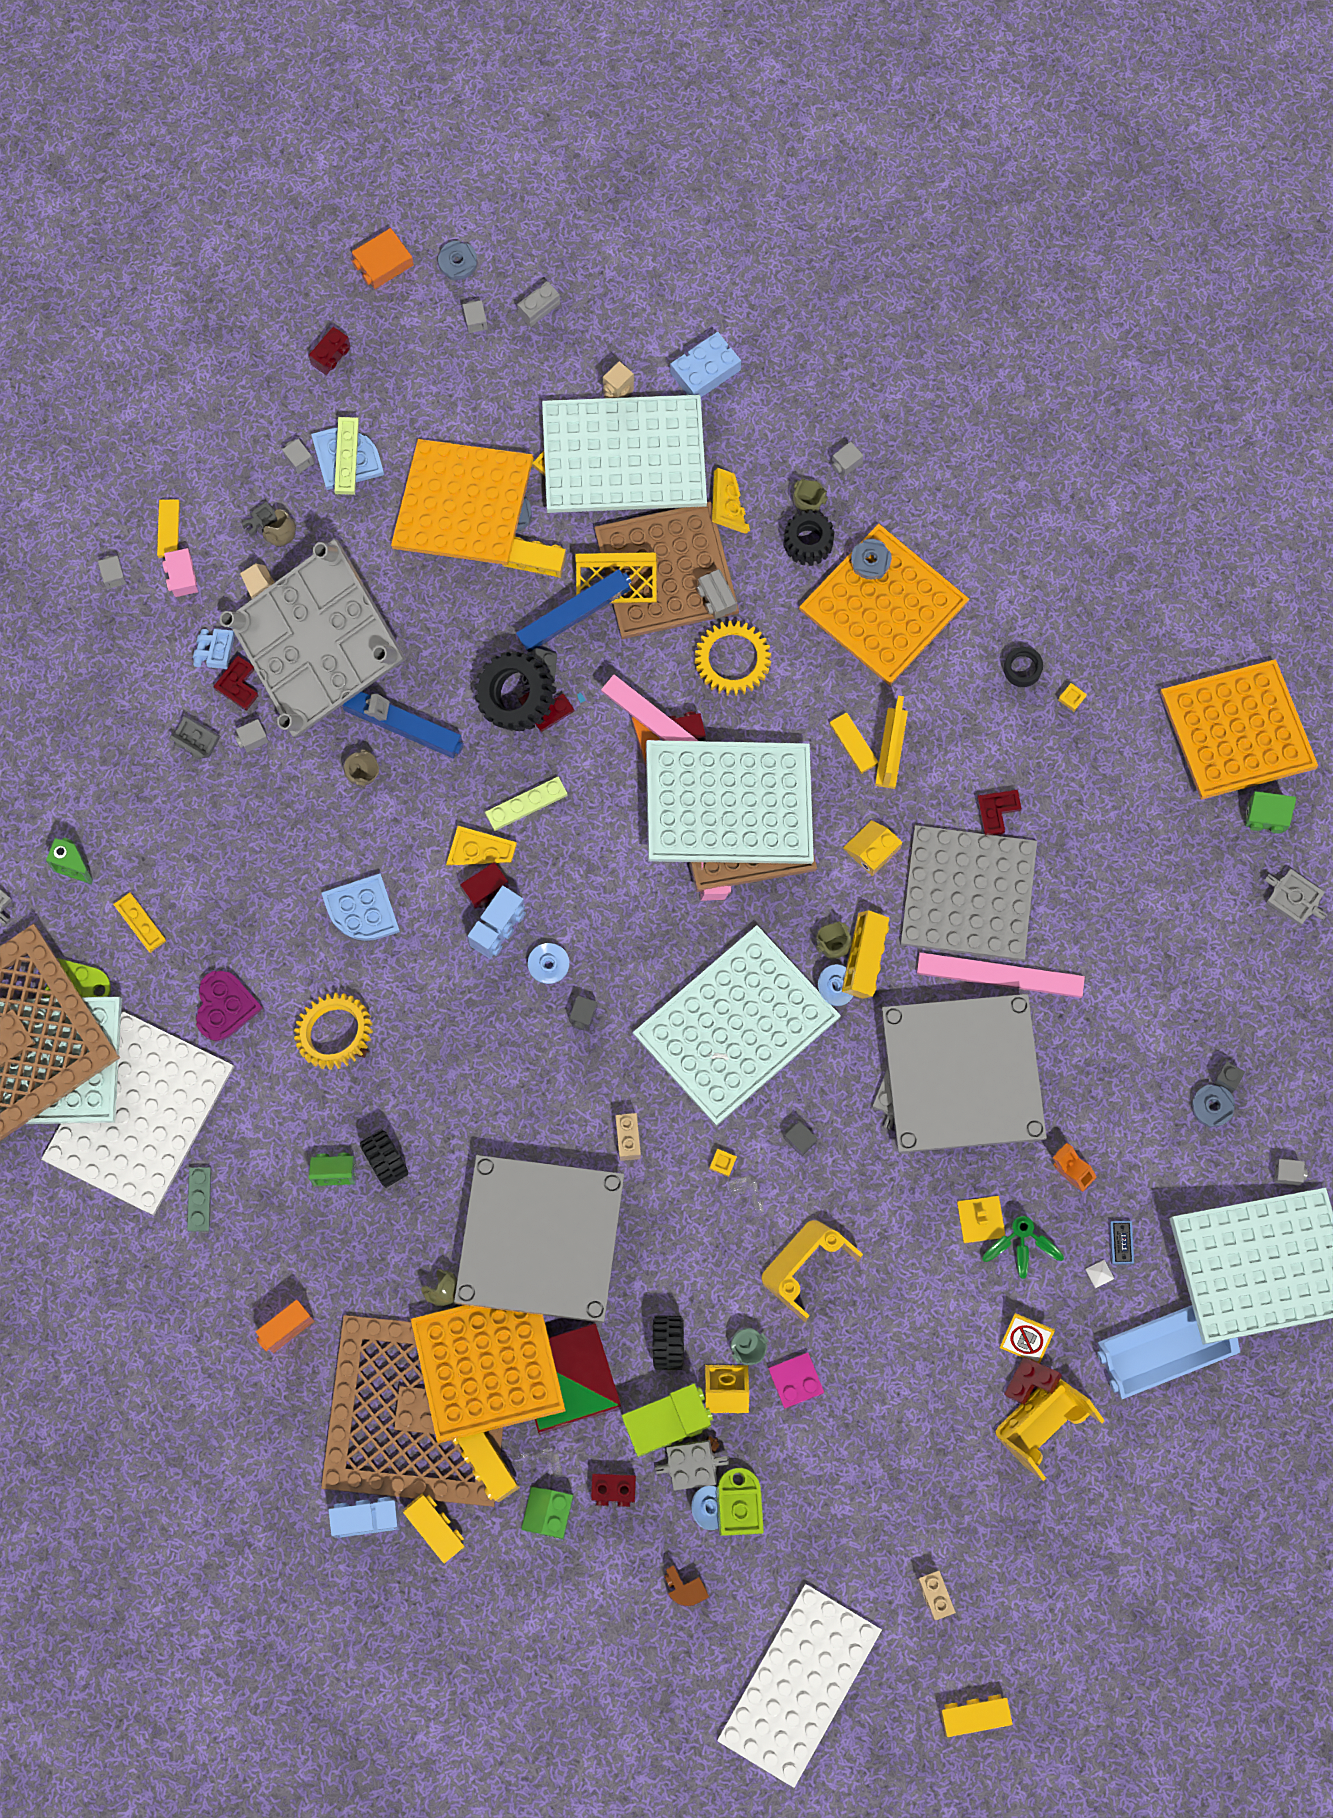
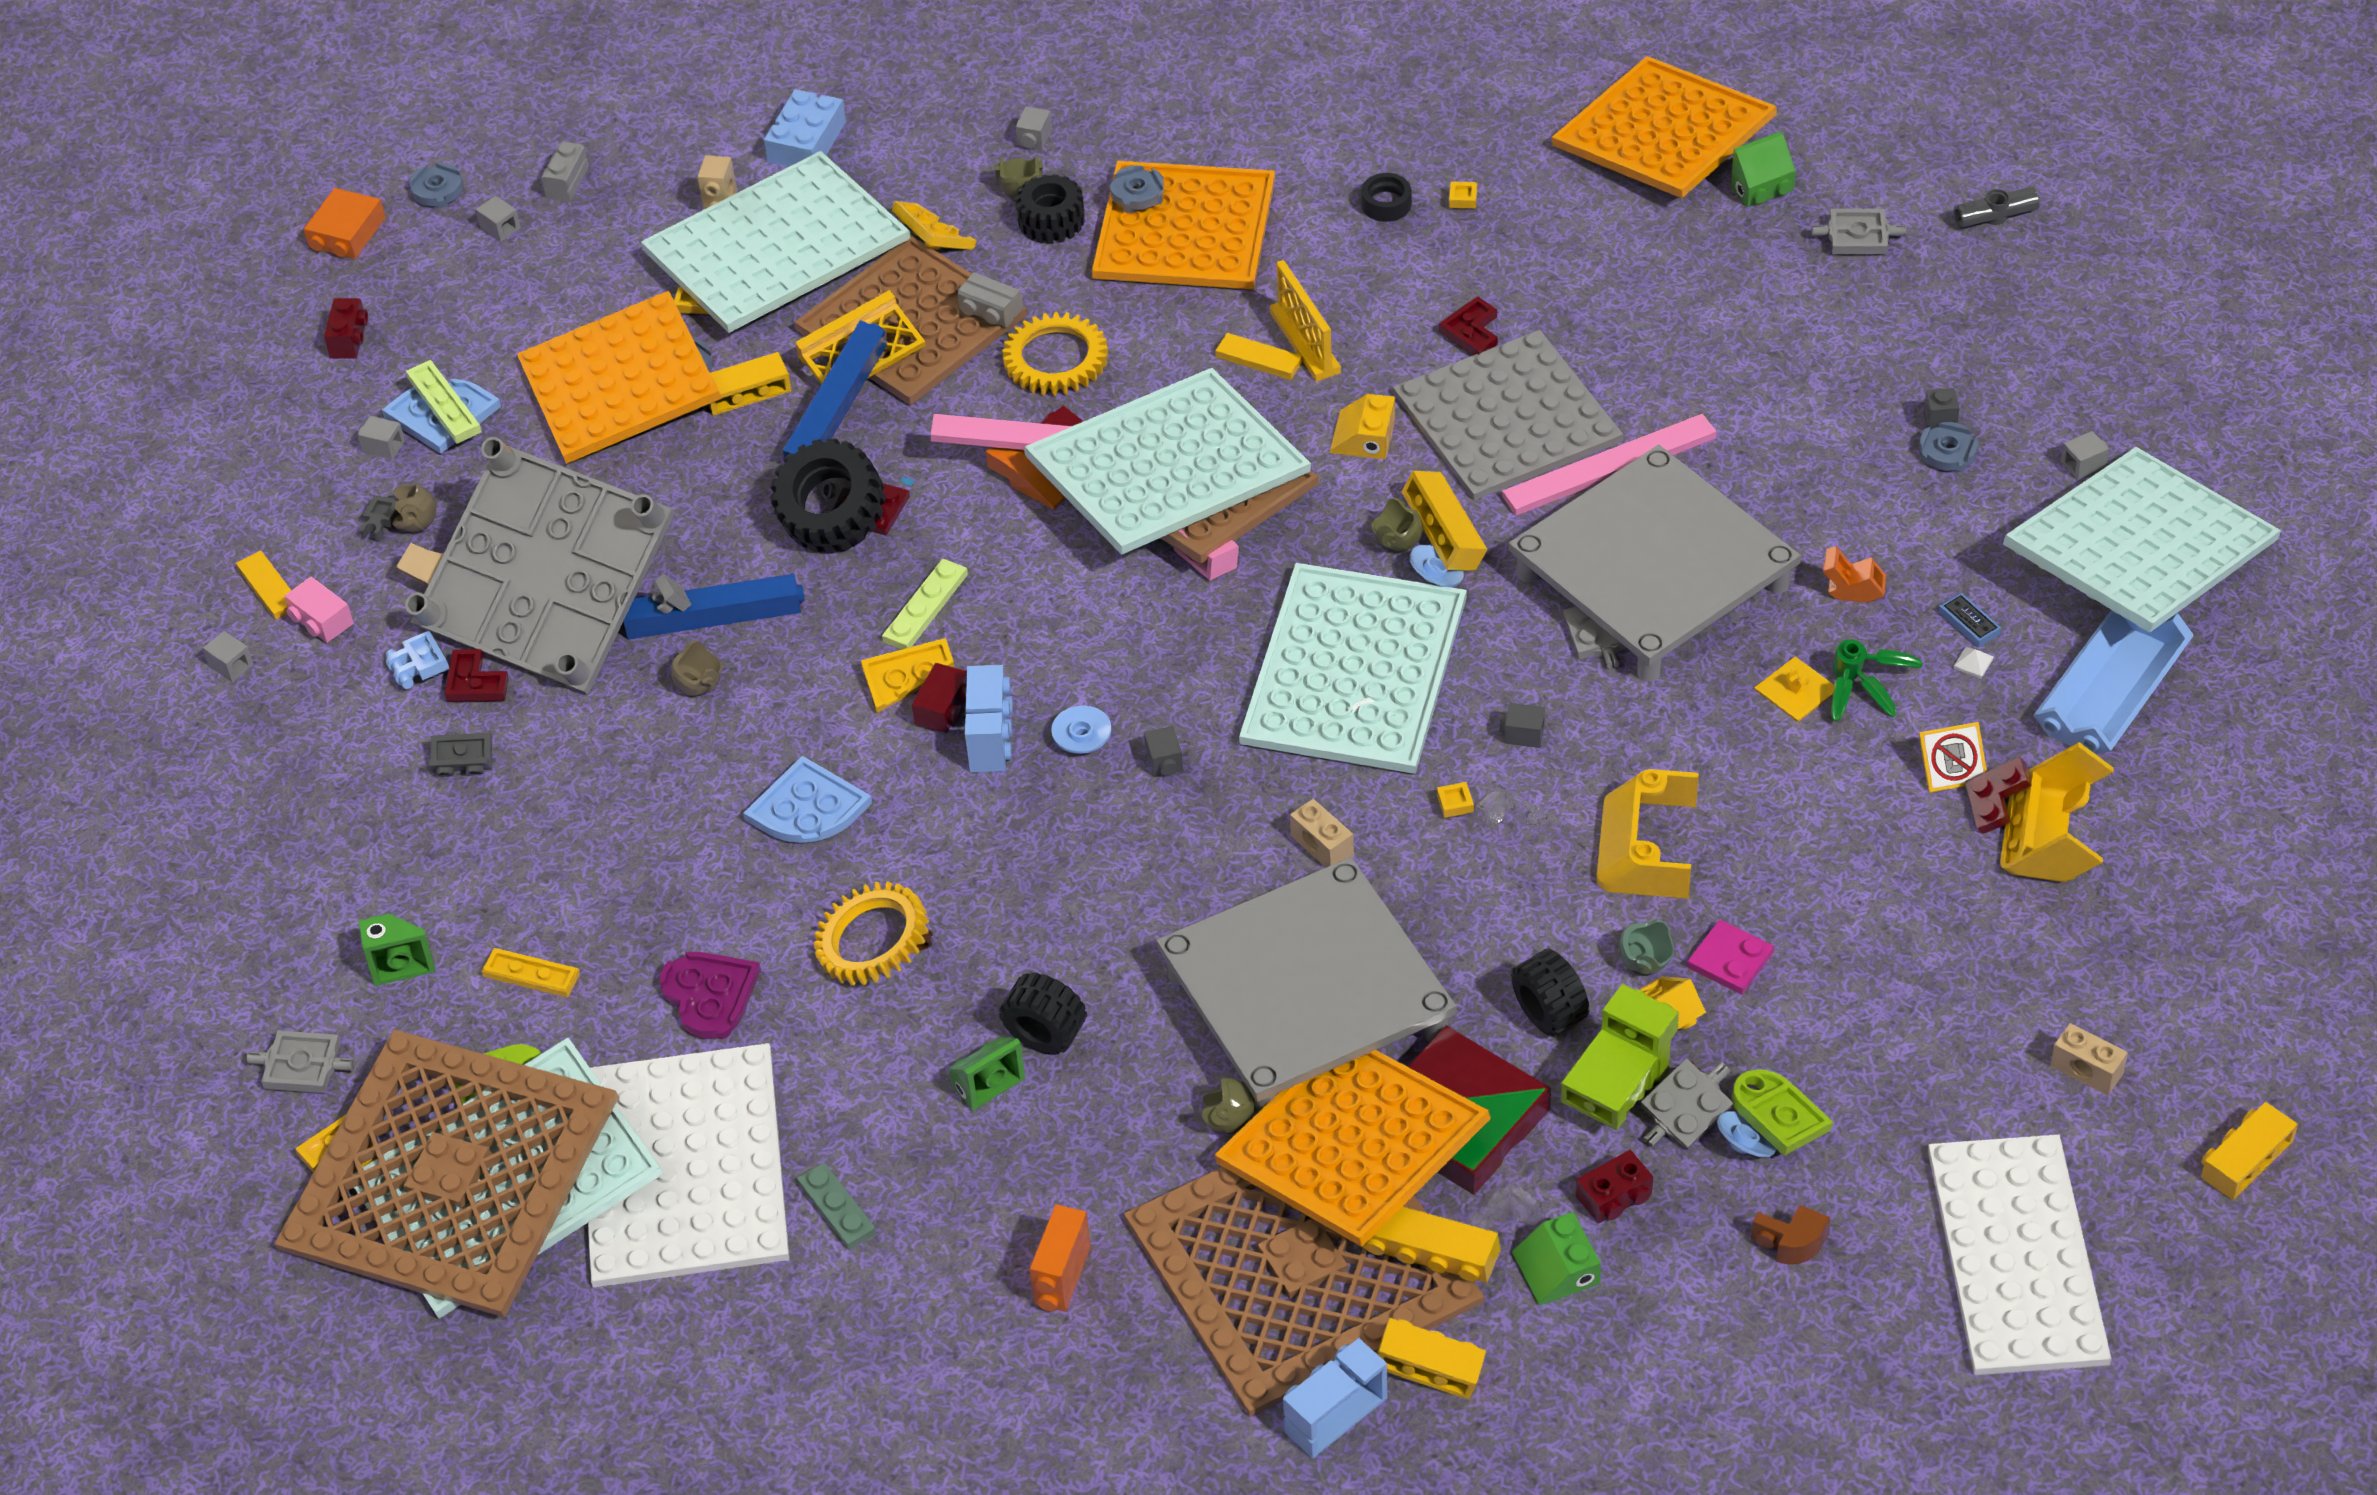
camera: 30 degrees left, 25 degrees down
(251, 736) = (532, 714): light grey brick -> none

